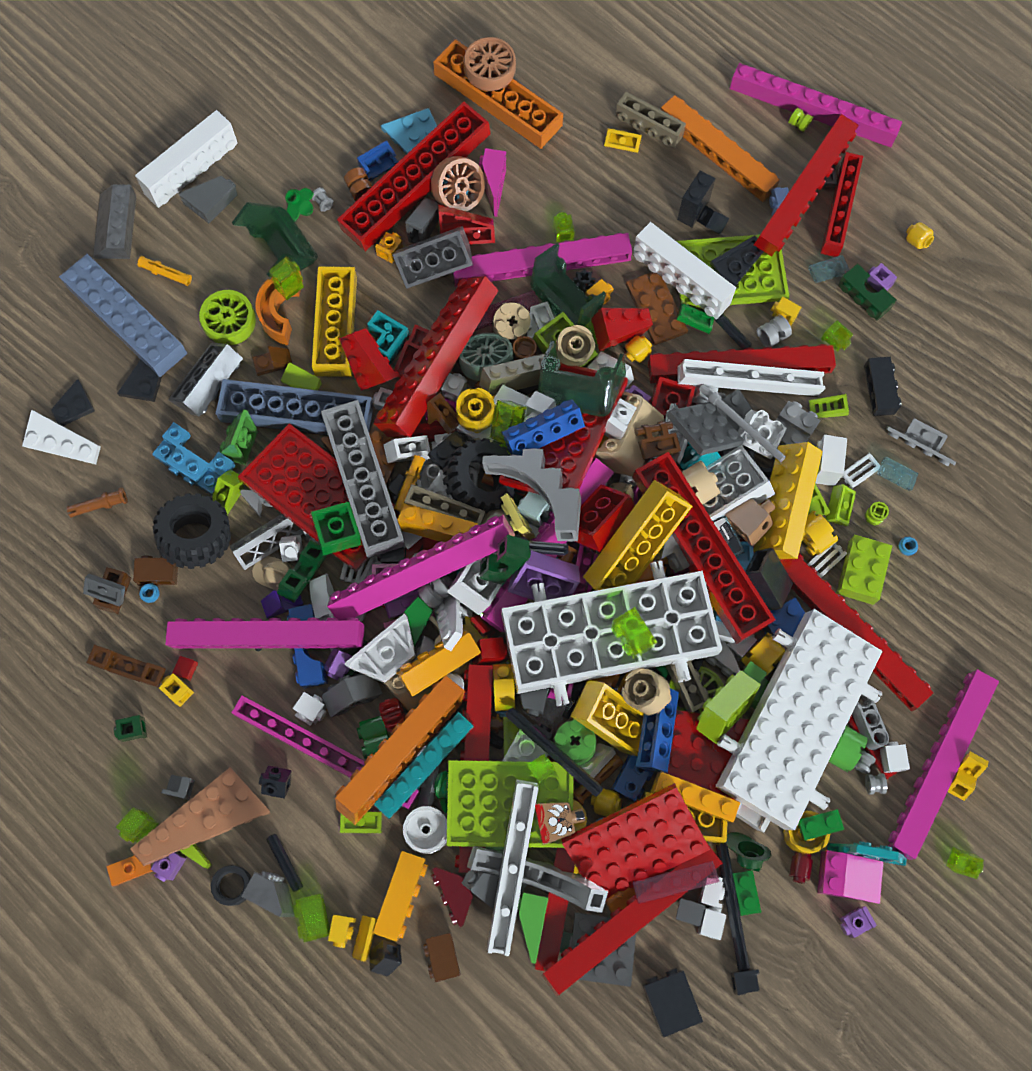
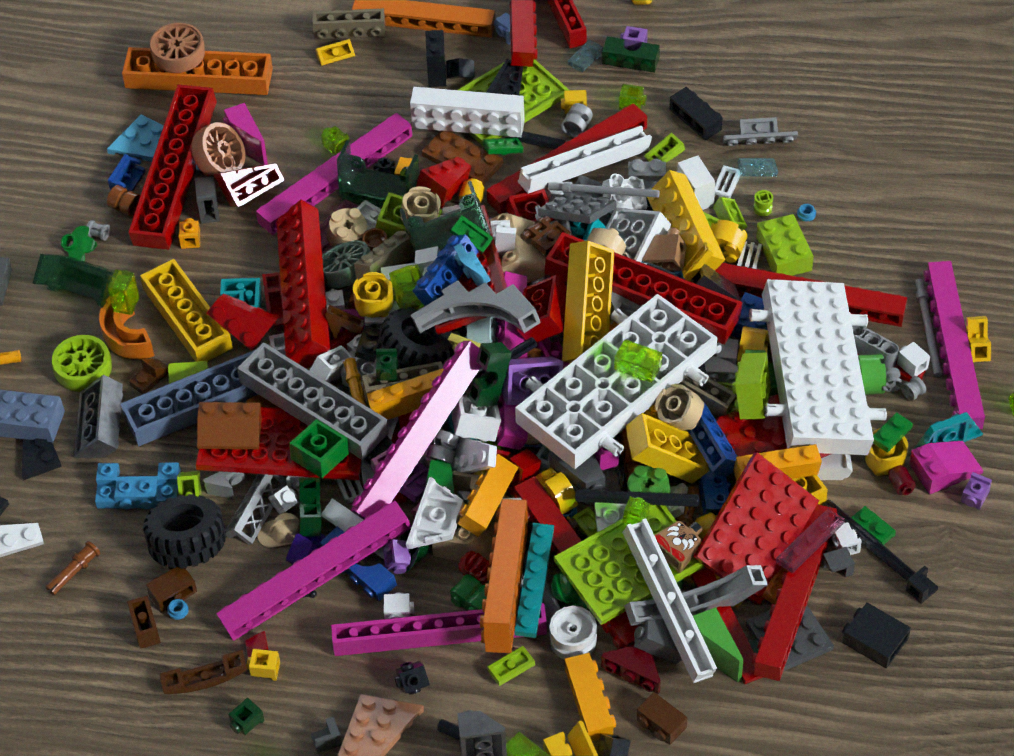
camera: 30 degrees left, 20 degrees down
(104, 590) = (141, 614): dark grey plate -> none
(239, 438) = (168, 439): bright green slope -> none
(284, 458) = (228, 425): none -> dark orange slope
(350, 693) = (424, 573): dark grey brick -> none
(433, 257) = (239, 216): flat silver slope -> none
(434, 496) = (386, 364): none -> dark green brick
(562, 442) = (472, 265): none -> medium azure slope
(589, 408) = (476, 235): none -> green plate
(712, 923) = (865, 561): white brick -> none
(748, 851) = (853, 496): dark green piece -> none
(768, 550) = (697, 261): none -> yellow tile
(949, 696) = (922, 298): none -> light grey bar

